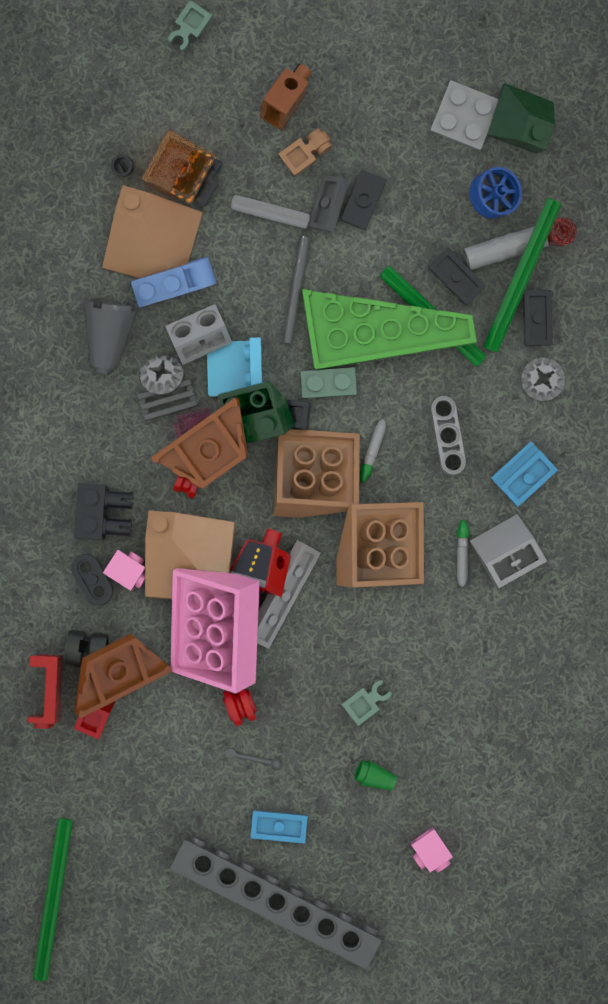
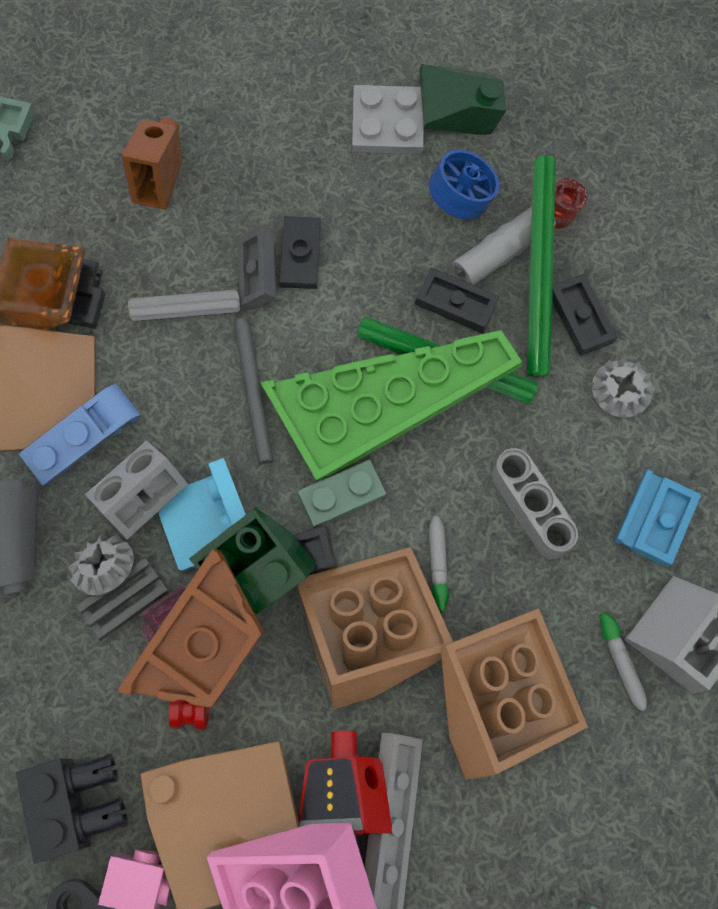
camera: 25 degrees left, 15 degrees down
(300, 157) = (199, 226): medium nougat plate -> none

